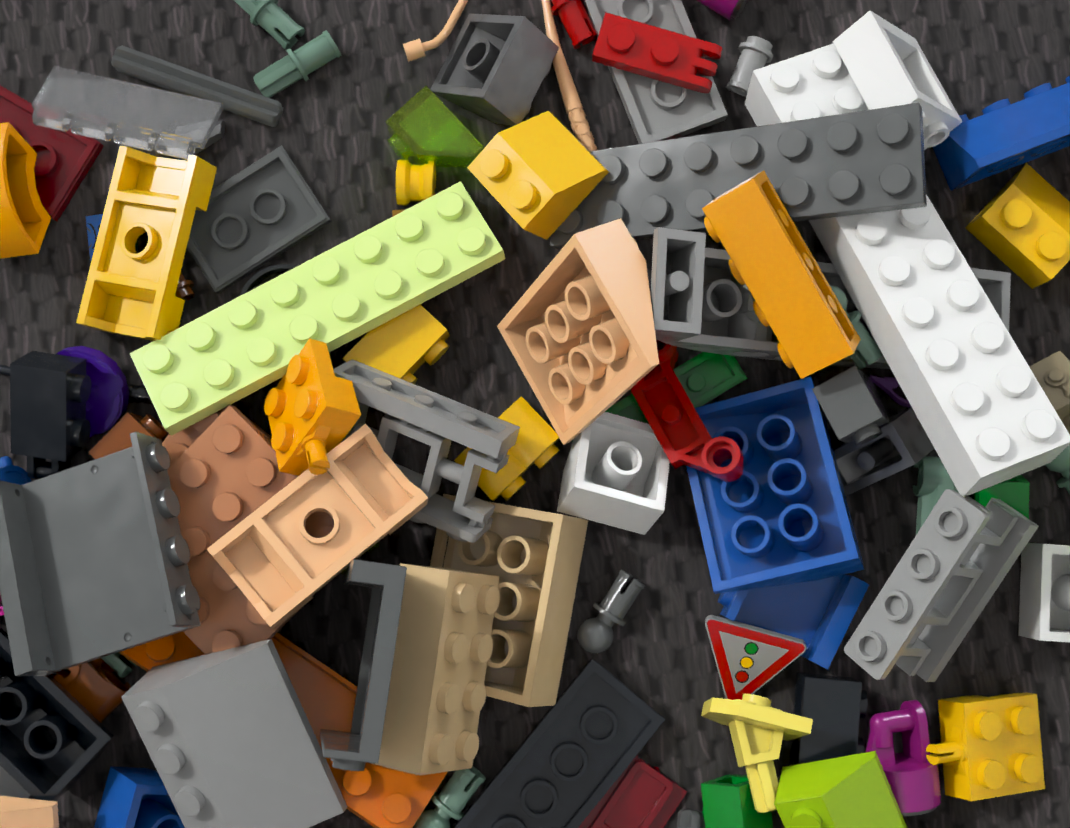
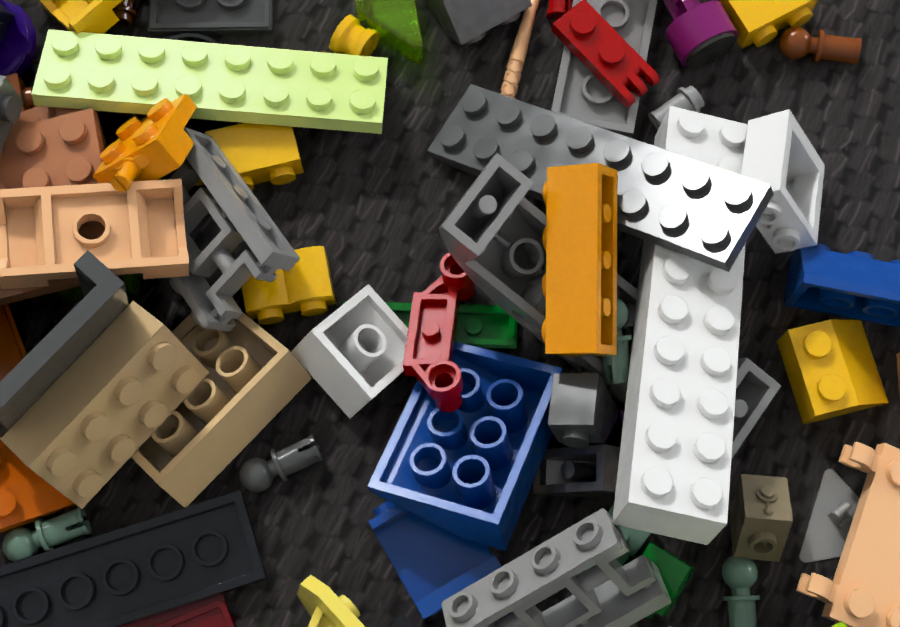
camera: 30 degrees right, 10 degrees down
(538, 172) = (450, 85): yellow slope -> none
(585, 328) = (399, 204): light nougat slope -> none
(749, 654) = (368, 568): piece -> none

